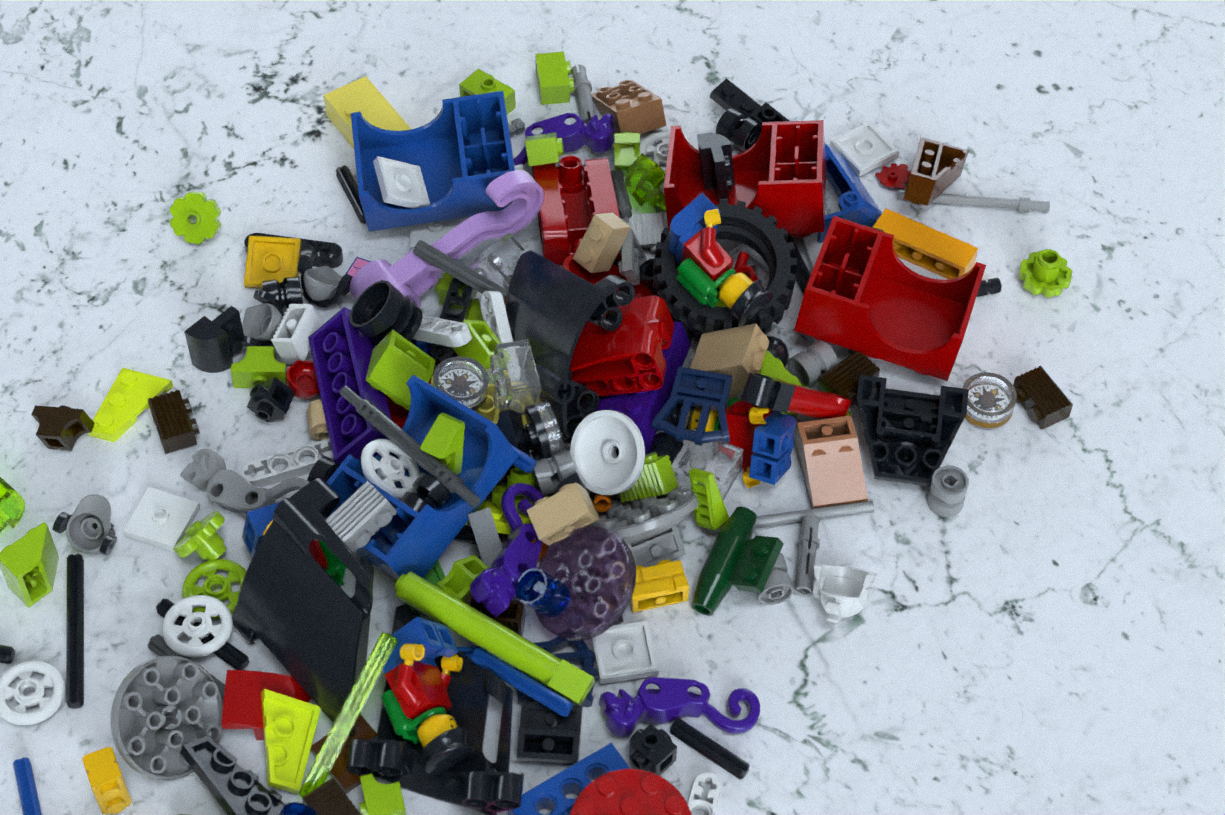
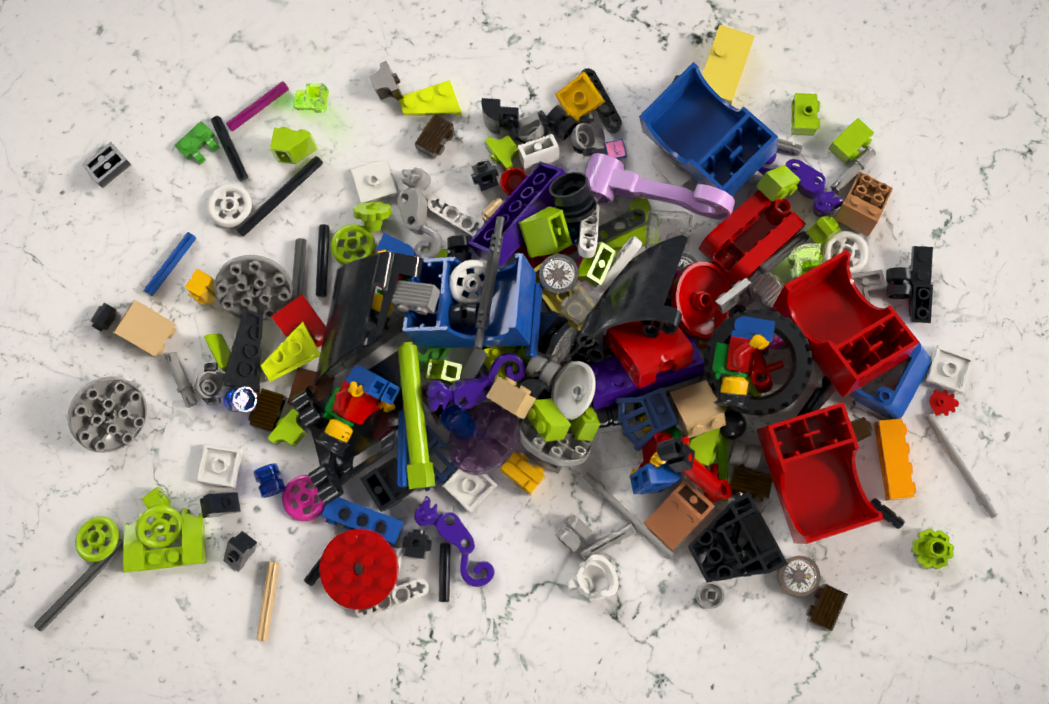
camera: 60 degrees right, 25 degrees up
(89, 526) = (337, 153): light grey cap -> none
(195, 217) = (575, 30): lime plant -> none
(195, 647) = (325, 271): white plate -> none
(349, 713) = (315, 378): clear neon green axle -> none
(401, 183) = (679, 127): white plate -> none
(446, 441) = (500, 301): lime slope -> none
(456, 269) = (640, 210): dark grey axle -> none
(601, 242) = (724, 274): tan brick -> none
(622, 498) = (548, 420): none -> lime brick
(711, 509) = (591, 466): lime slope -> none
(716, 163) = (844, 296): black brick -> none
(735, 561) = (566, 508): dark green plate -> none
(933, 170) = (959, 426): reddish brown wedge -> none

